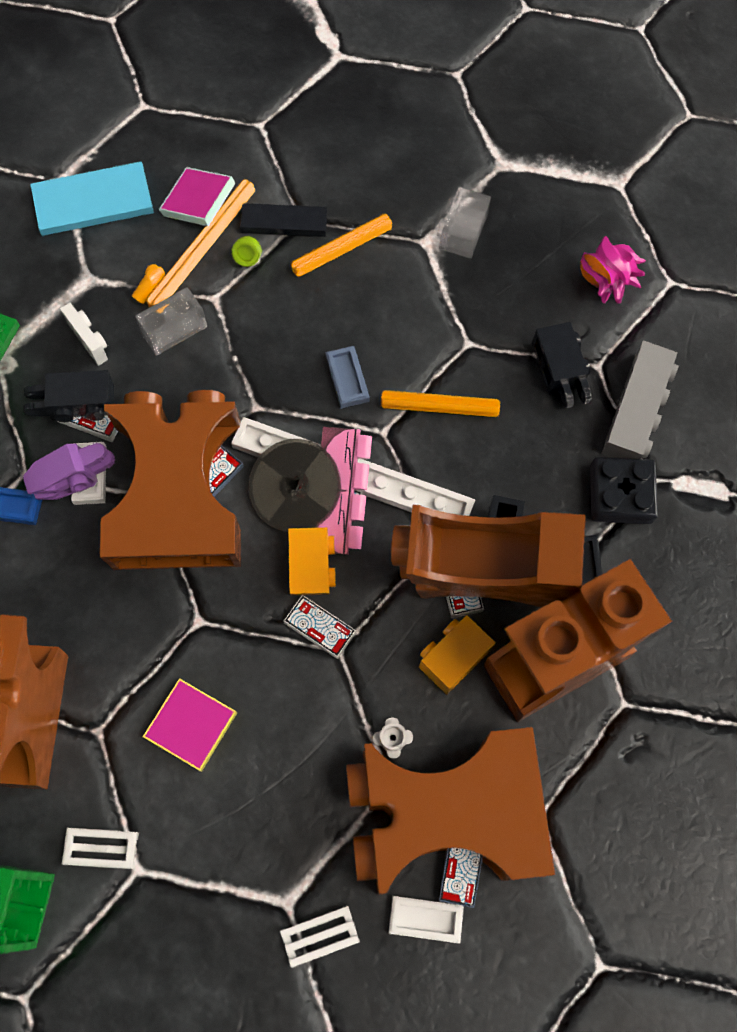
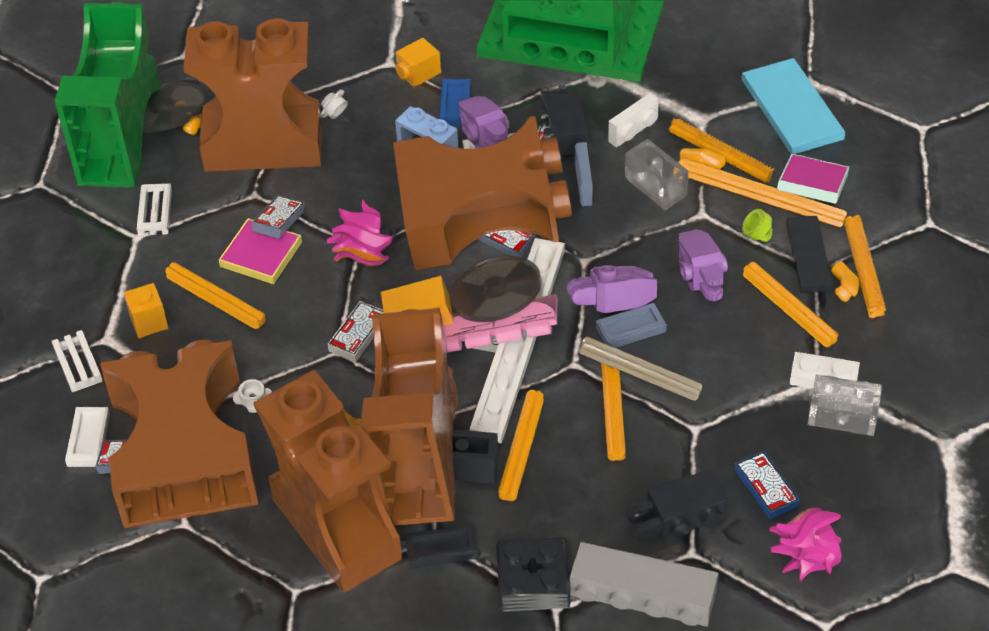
camera: 90 degrees right, 20 degrees down
(60, 530) = (418, 122): none -> light blue window
(136, 267) = (730, 154): none -> light orange axle
(150, 701) = (278, 216): none -> tile
(168, 388) = (583, 174): none -> sand blue tile
(204, 610) = (360, 237): none -> dark pink hair
(247, 777) = (215, 295): none -> light orange axle
(267, 853) = (146, 310): none -> light orange brick
(289, 302) = (702, 263): none -> medium lavender hinge
(306, 180) = (865, 266): none -> light orange axle
(312, 380) = (614, 288): none -> medium lavender hinge
(321, 195) = (848, 280): none -> light orange arm
(409, 372) = (640, 368): none -> axle
(421, 234) = (807, 366): none -> white plate
(474, 484) = (521, 446): none -> light orange axle
(536, 297) = (767, 485): none -> tile

